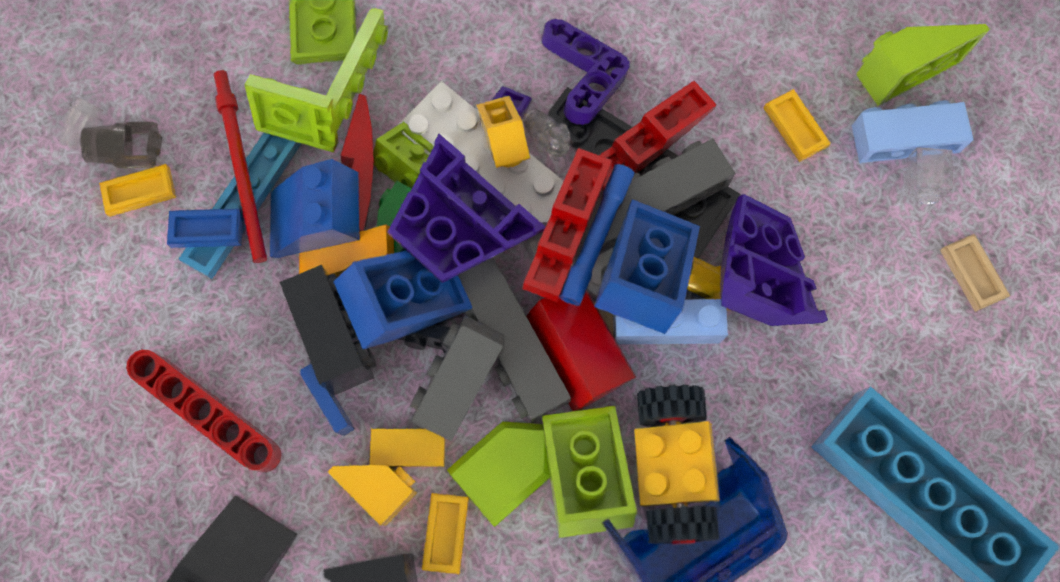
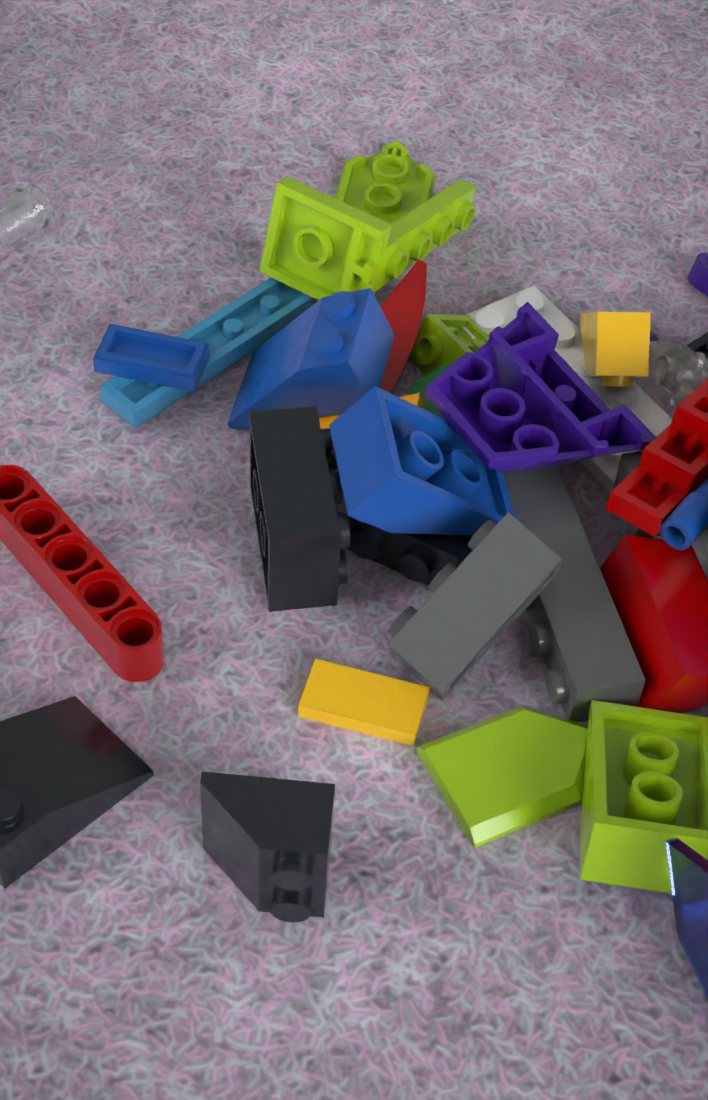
camera: 10 degrees right, 25 degrees down
(115, 144) = (57, 244): clear smoke piece -> none
(137, 190) = (66, 307): yellow tile -> none
(227, 106) = (228, 240): red bar -> none
(327, 402) = (260, 603): blue tile -> none
(376, 488) = (301, 729): yellow slope -> none
(445, 533) = (391, 833): yellow tile -> none

